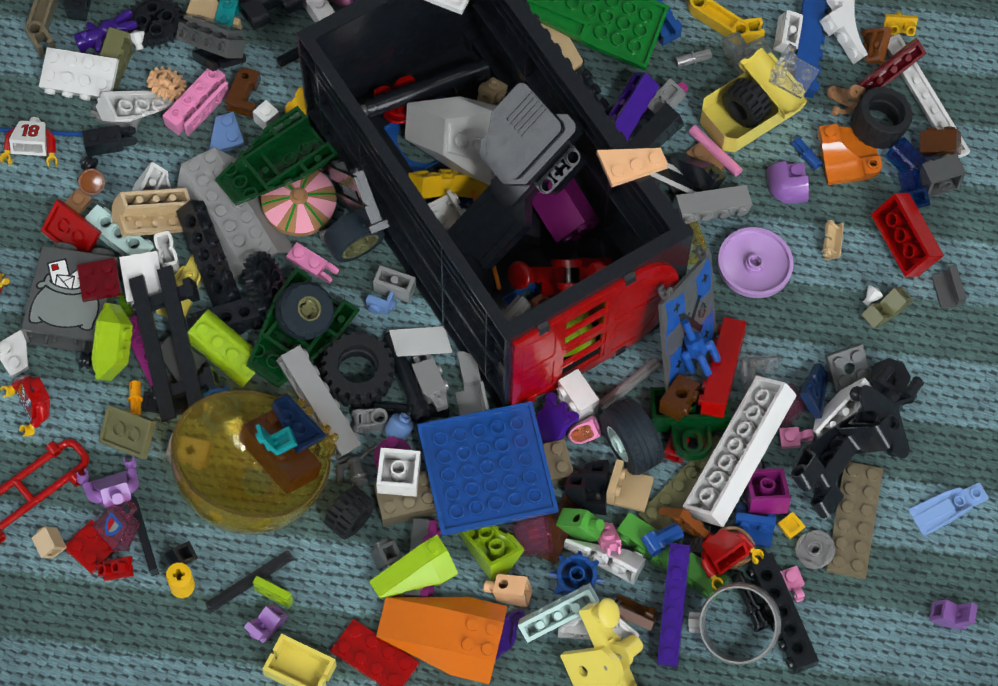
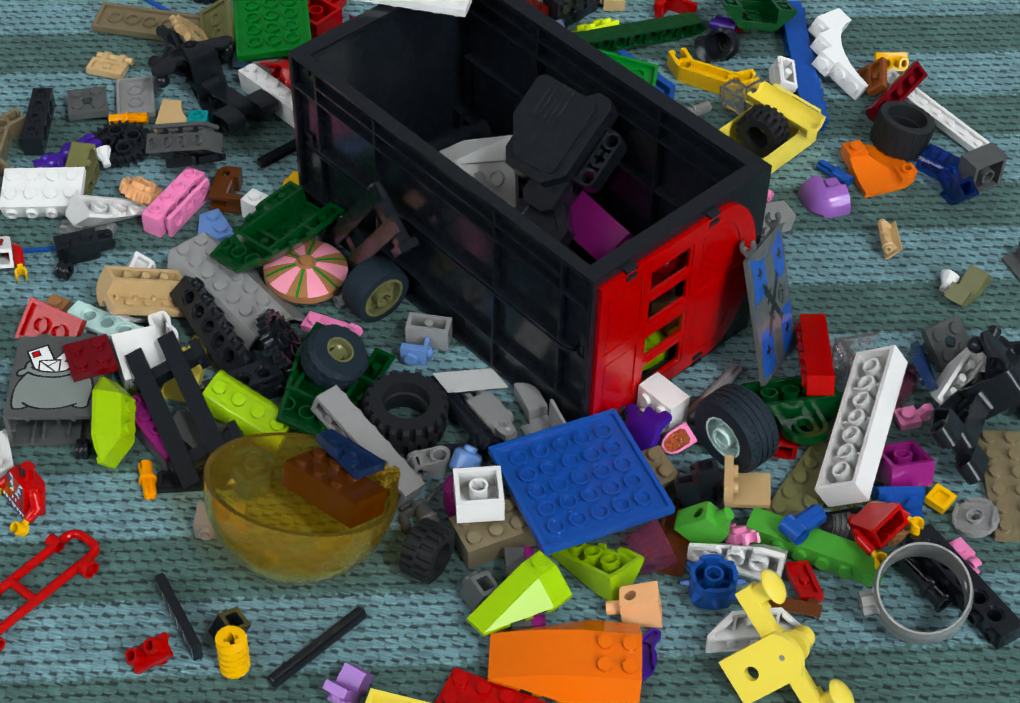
camera: 10 degrees left, 20 degrees down
(48, 542) = (60, 638): tan brick -> none
(89, 548) = (113, 637): red plate -> none
(91, 181) = (68, 284): dark orange piece -> none
(113, 488) = (131, 569): medium lavender torso -> none
(118, 526) = (146, 604): clear pink torso -> none
(127, 431) = (143, 506): olive plate -> none
(273, 592) = (350, 650): lime plate -> none
(277, 442) = (334, 466): teal bracket -> none
(556, 613) = (701, 617): light aqua brick -> none
(631, 164) = (685, 114): light nougat wing -> none
(652, 587) = (803, 580): none -> red plate
(674, 605) = (837, 591): dark purple brick -> none
(679, 397) = (779, 382): reddish brown brick -> none
(686, 522) = (833, 508): dark orange wing -> none
(697, 350) = (787, 329): blue plant -> none
(755, 262) = (819, 264): lavender dish -> none
(793, 73) = (804, 94): clear bracket -> none
(843, 95) = (854, 125): medium nougat helmet -> none
(907, 235) = (966, 220): red brick -> none
(940, 142) = (967, 139): reddish brown brick -> none

